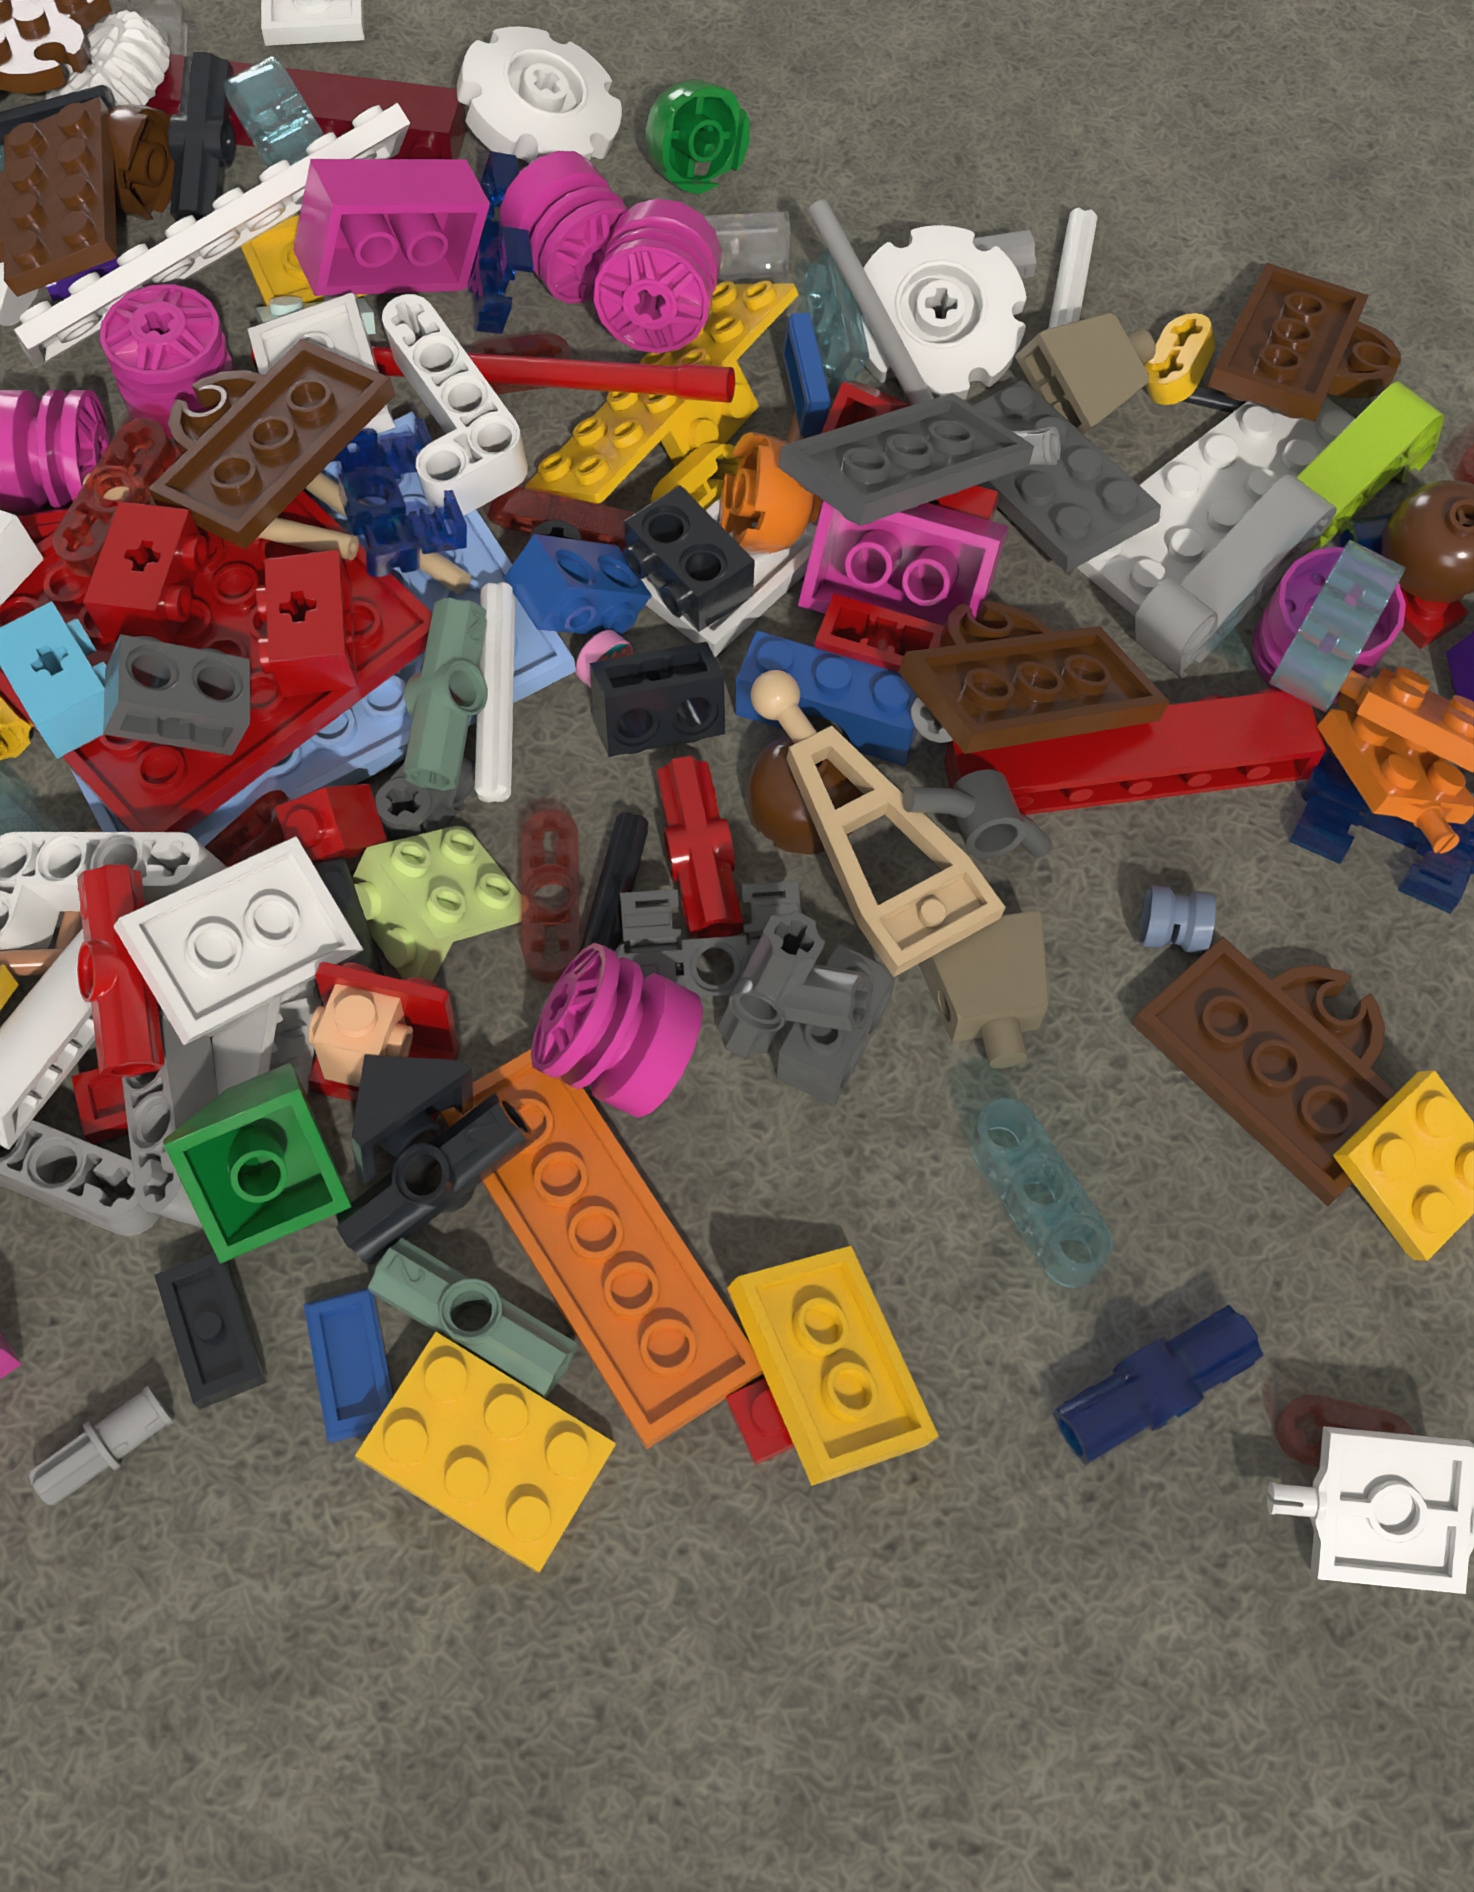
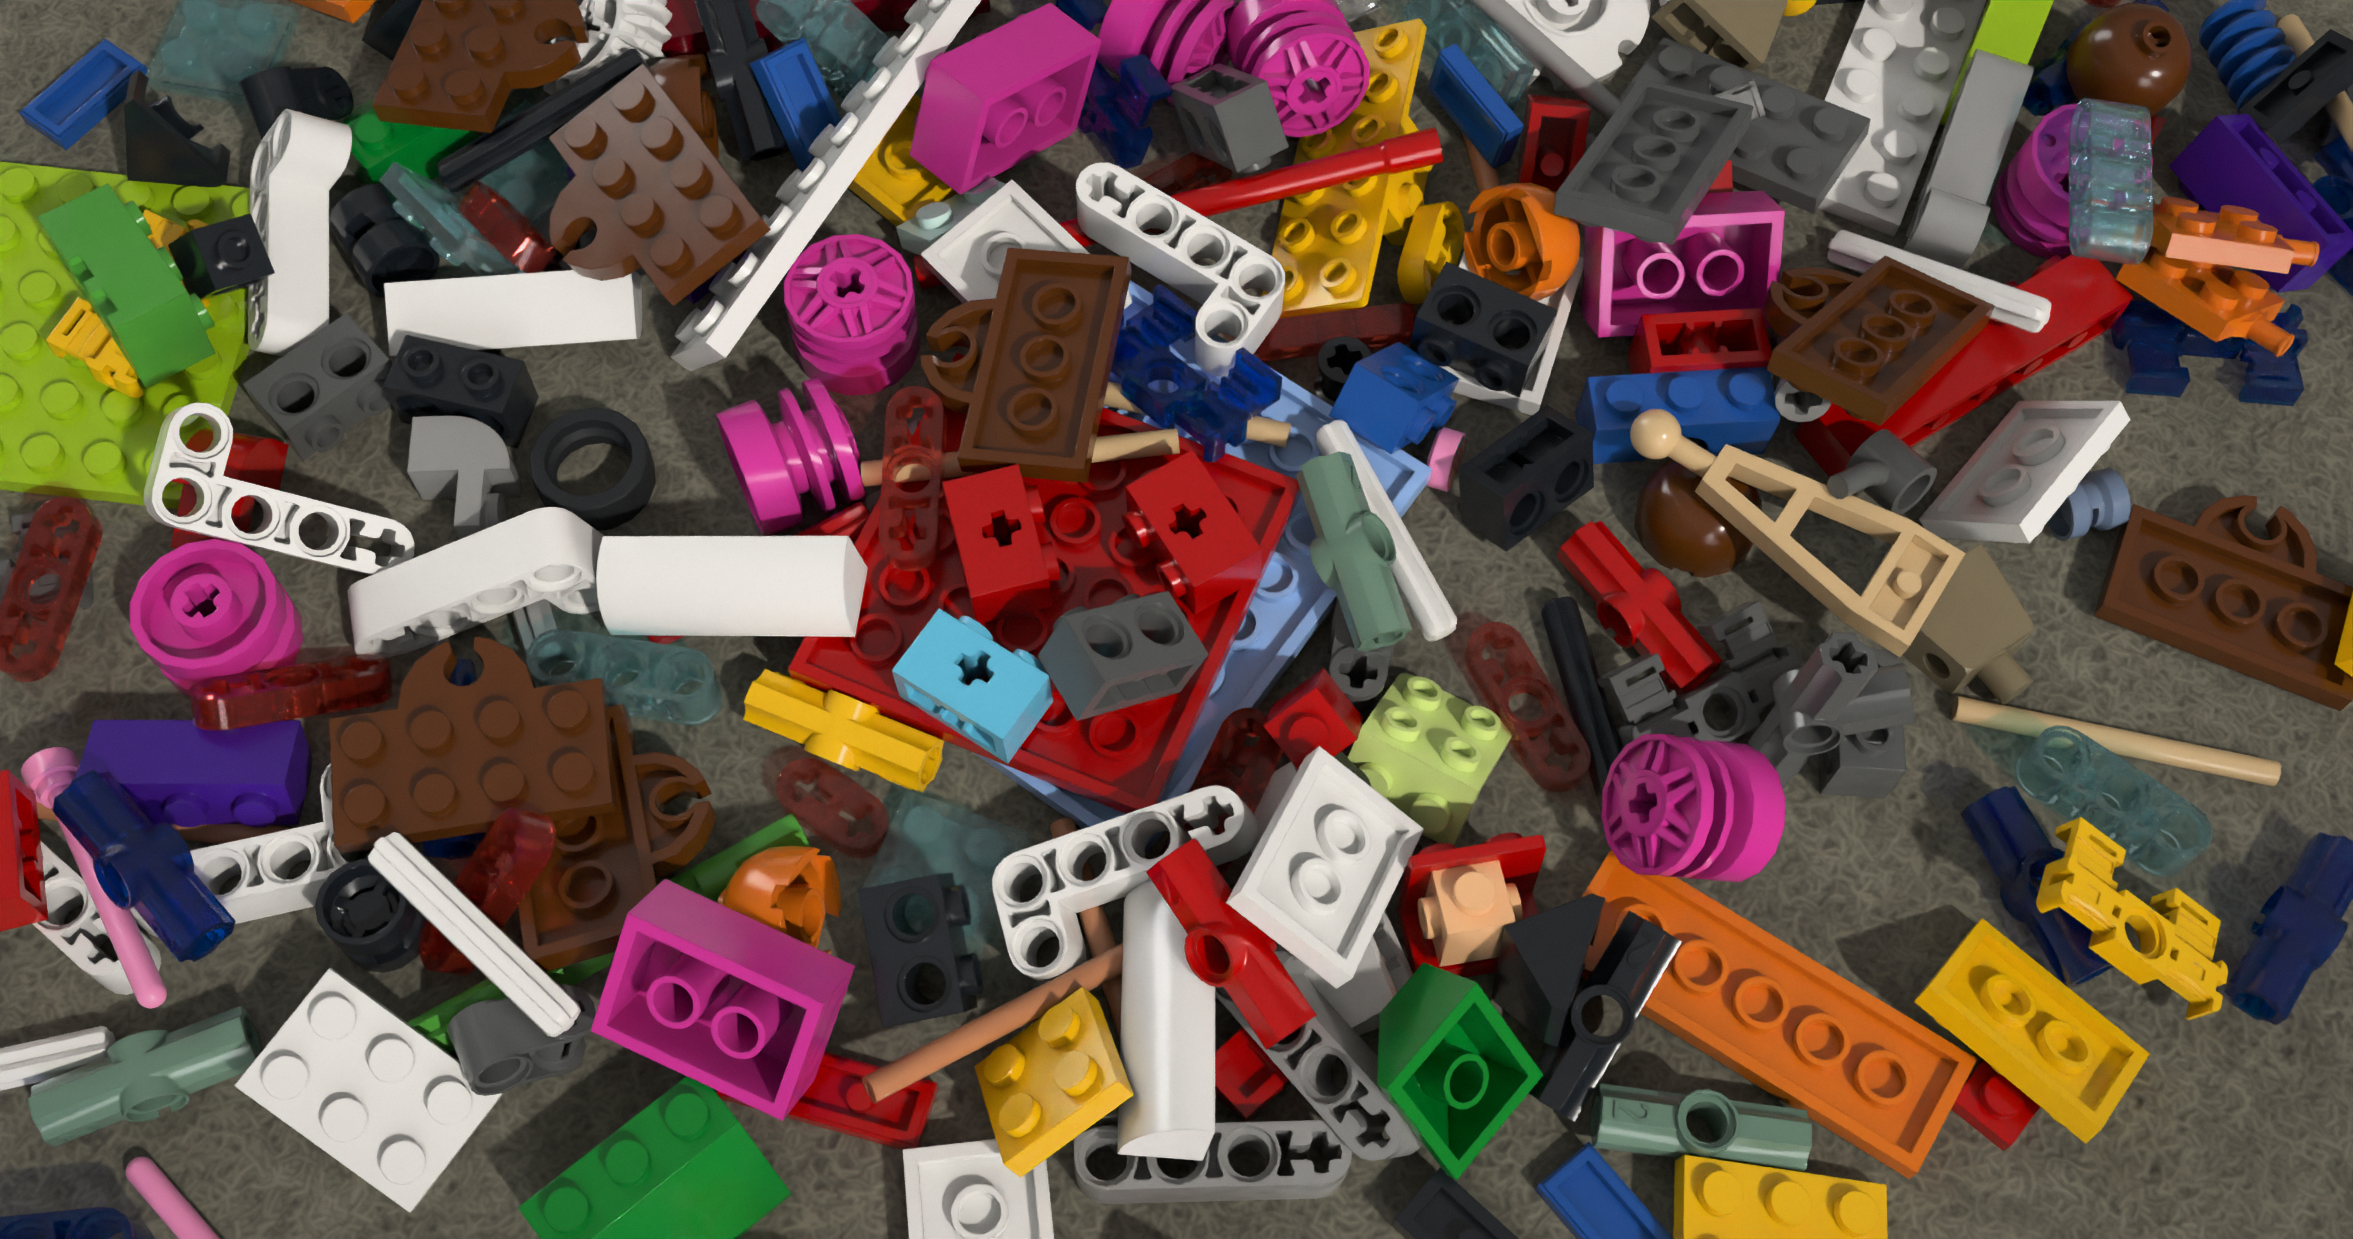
camera: 25 degrees left, 0 degrees up
(229, 159) = (796, 96): none -> blue tile
(564, 306) = (1229, 118): none -> brick
(922, 1279) = (2020, 850): none -> clear blue piece
(938, 1262) = (2172, 946): none -> yellow piece
(1091, 1147) = (2121, 741): none -> tan piece
(1128, 865) = (2025, 470): none -> white plate
(1186, 705) = (2011, 304): none -> white axle

